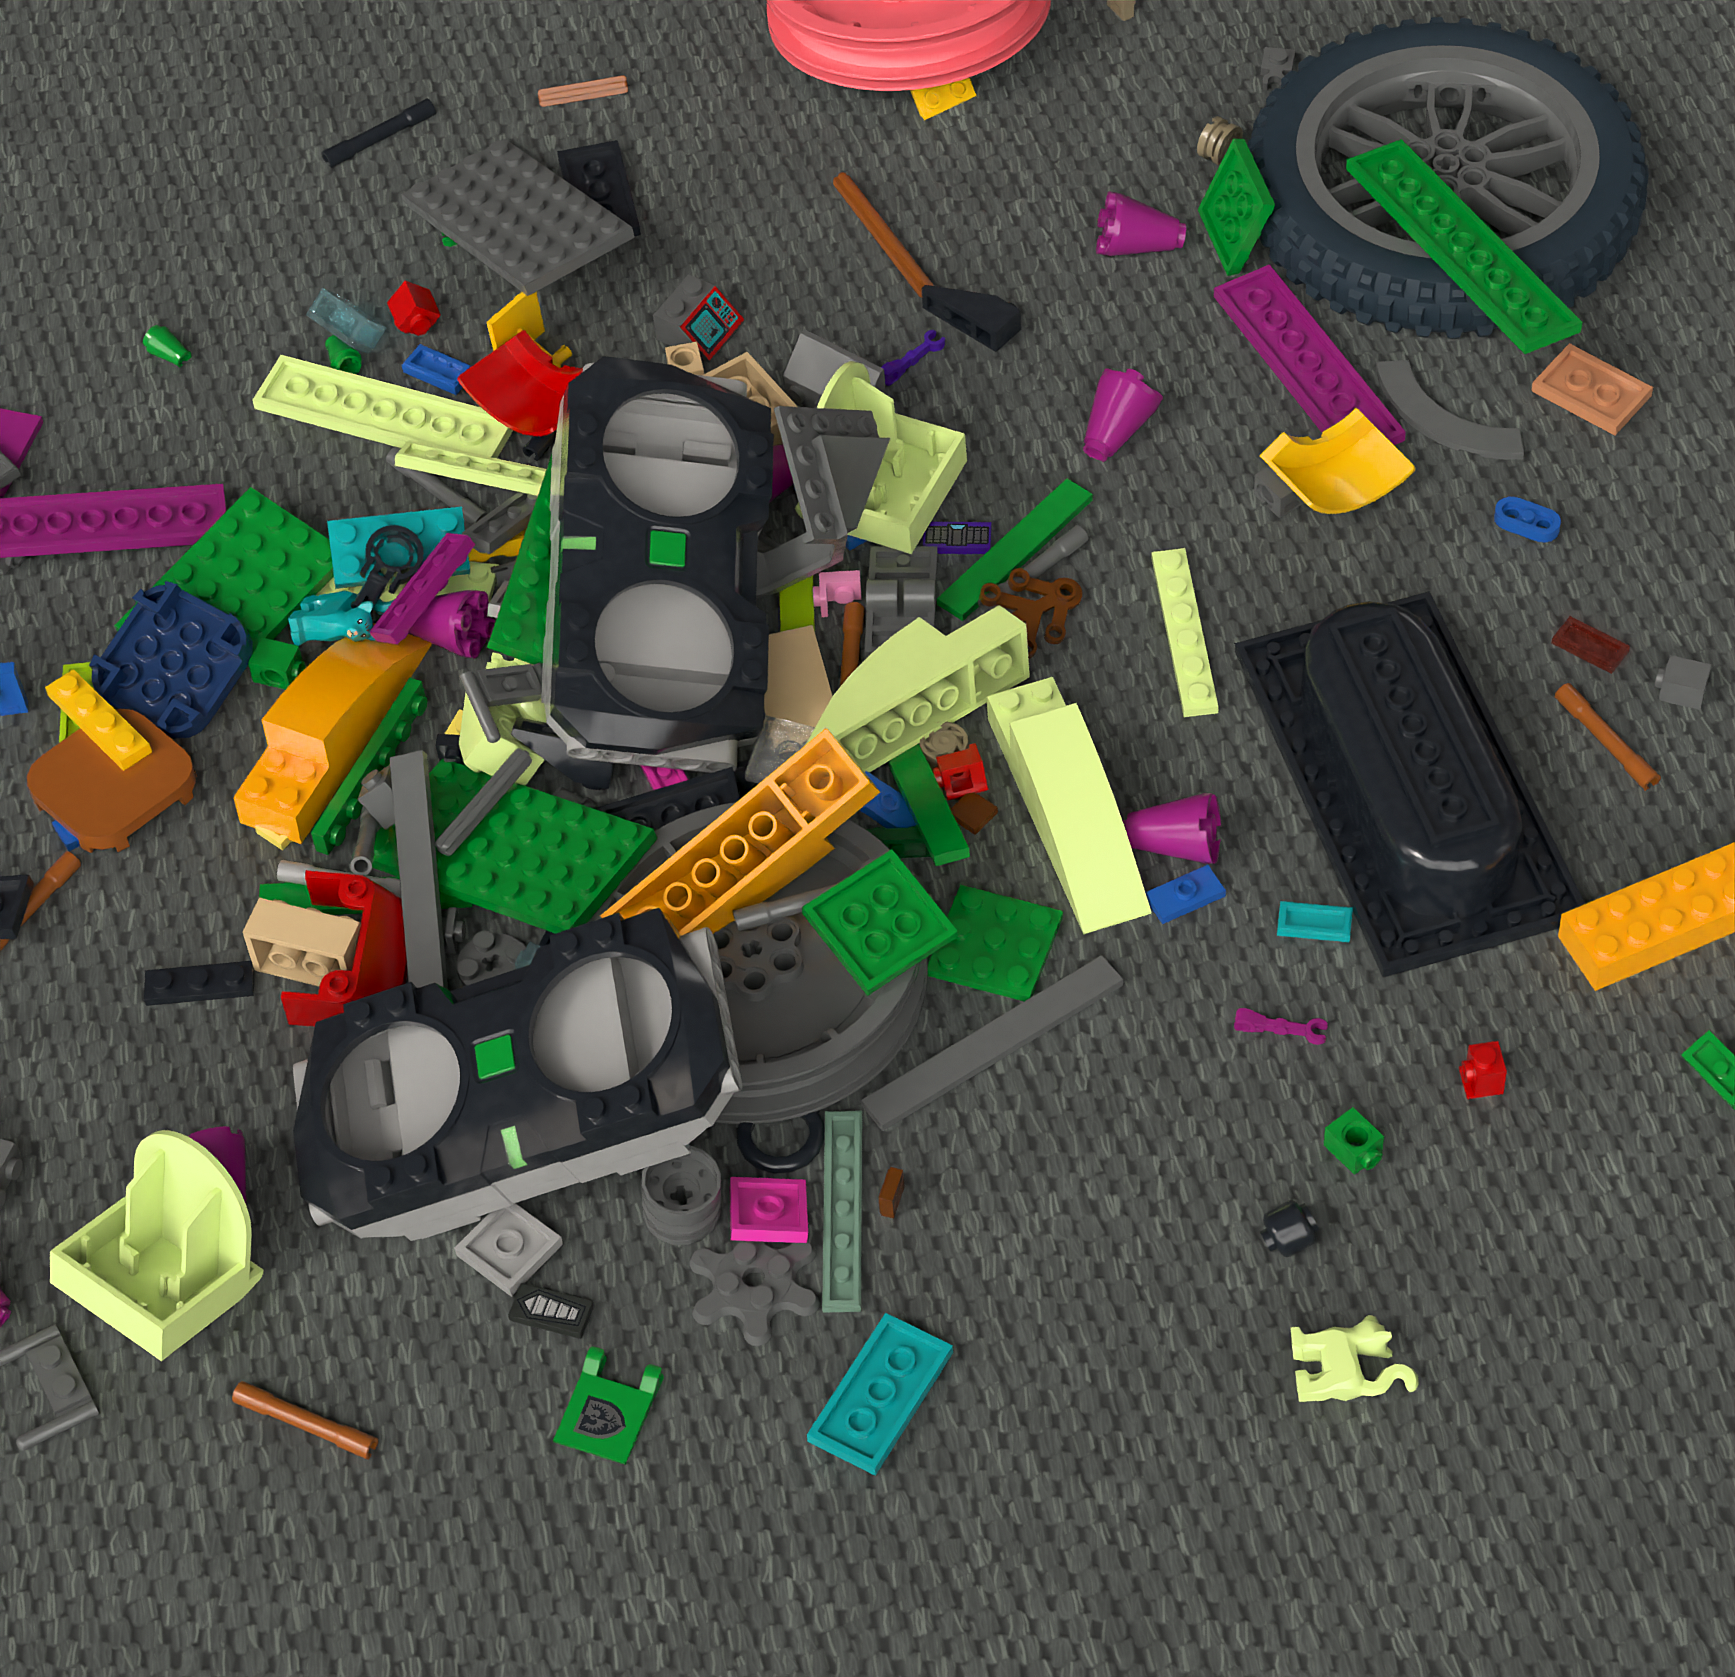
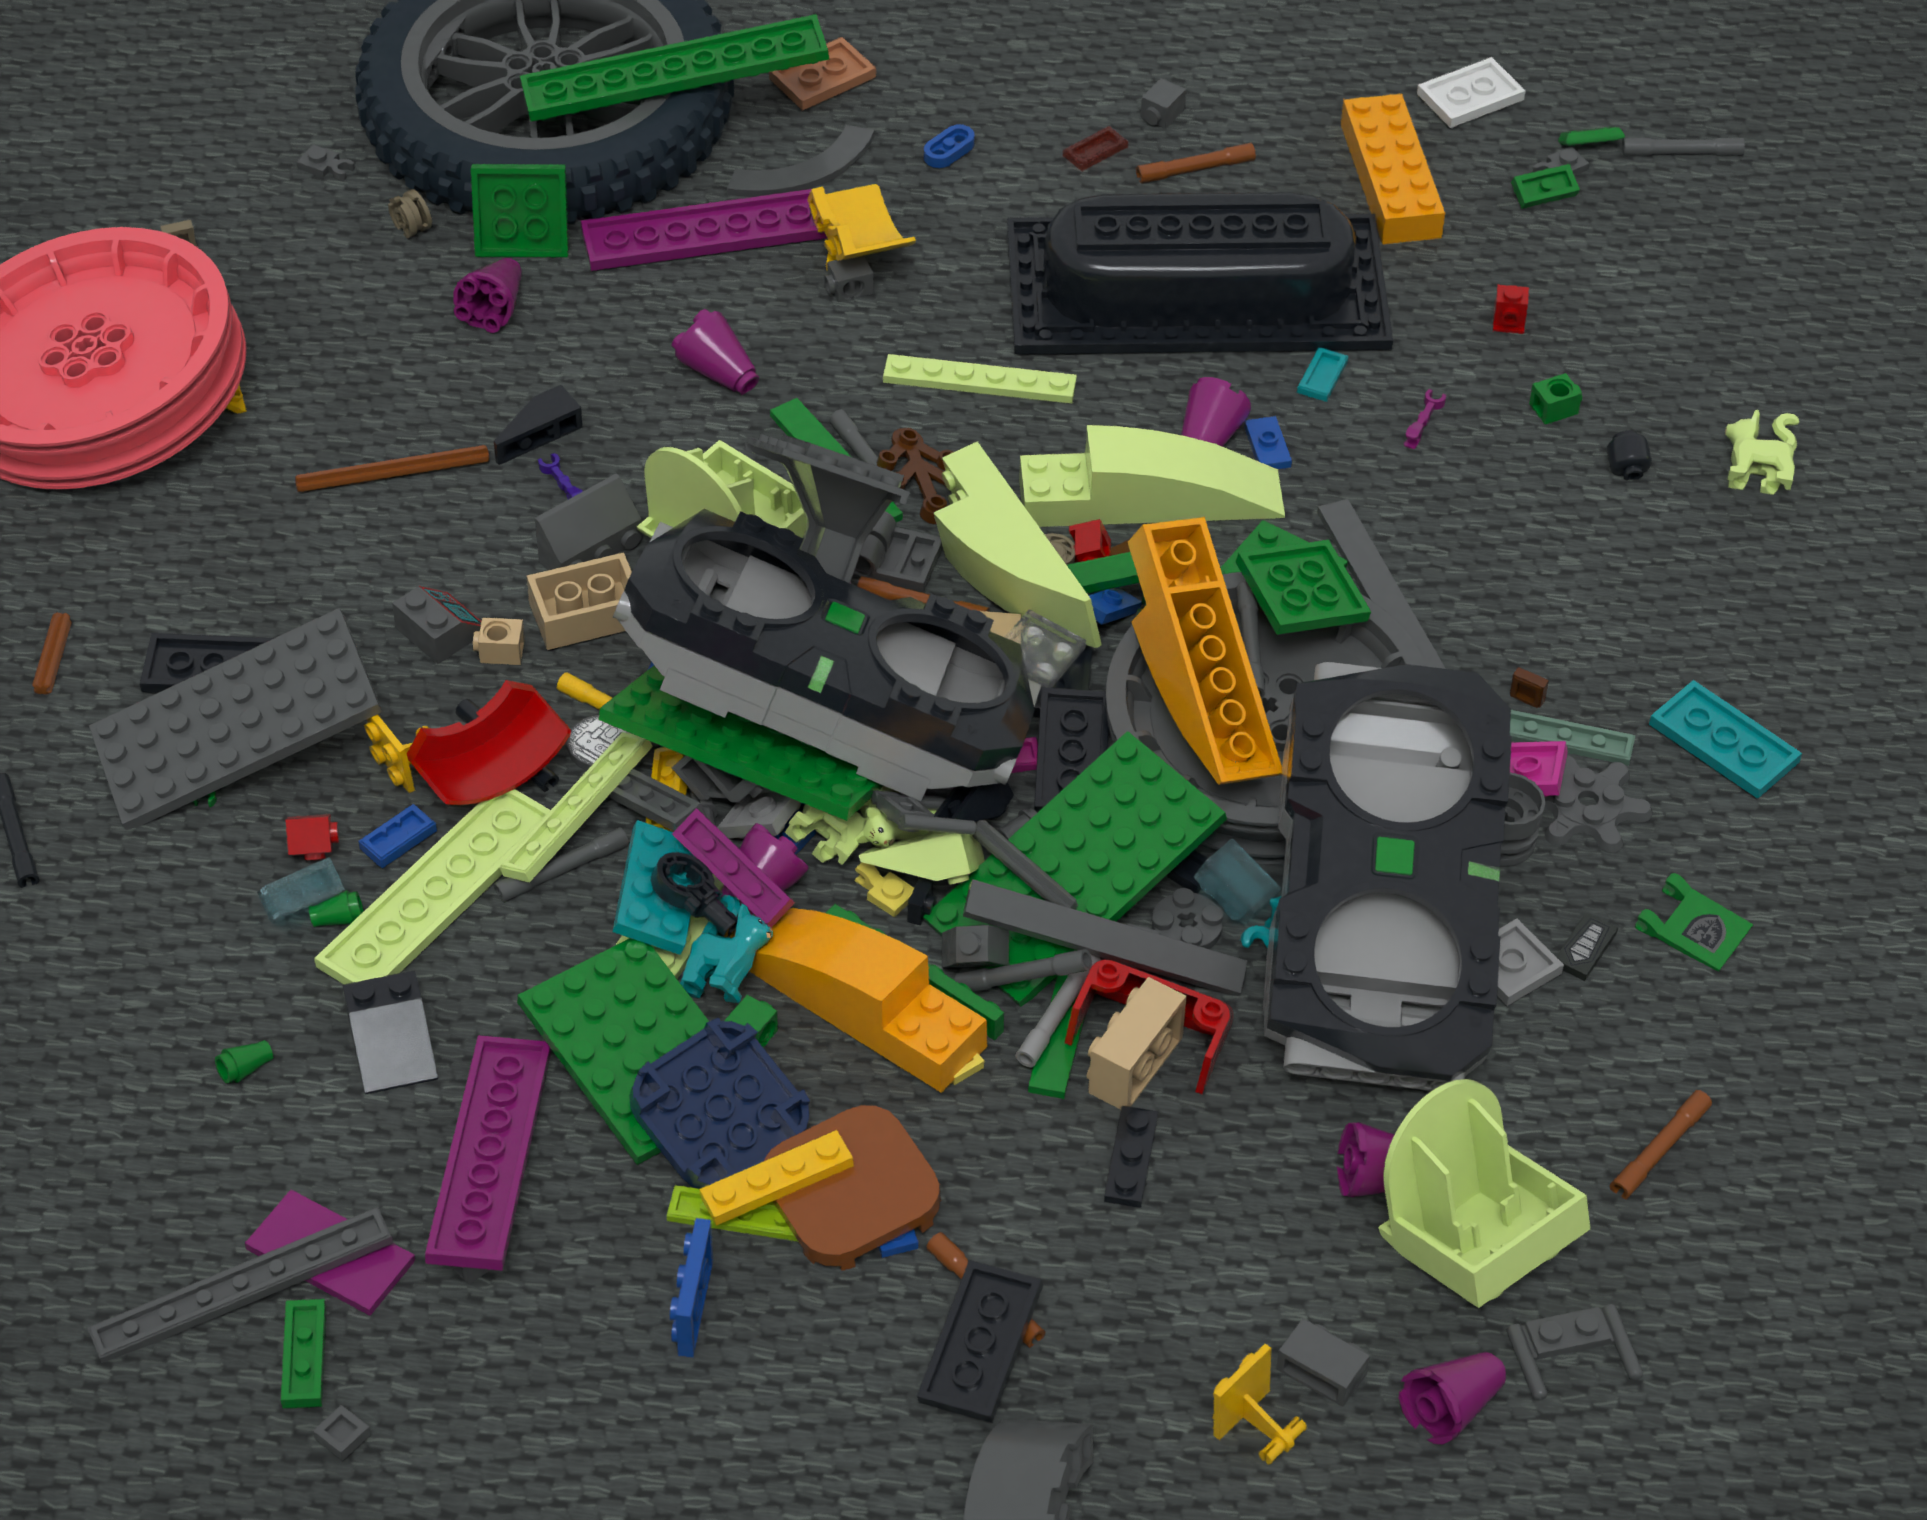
camera: 80 degrees left, 5 degrees down
(215, 427) = (390, 1032): none -> slope

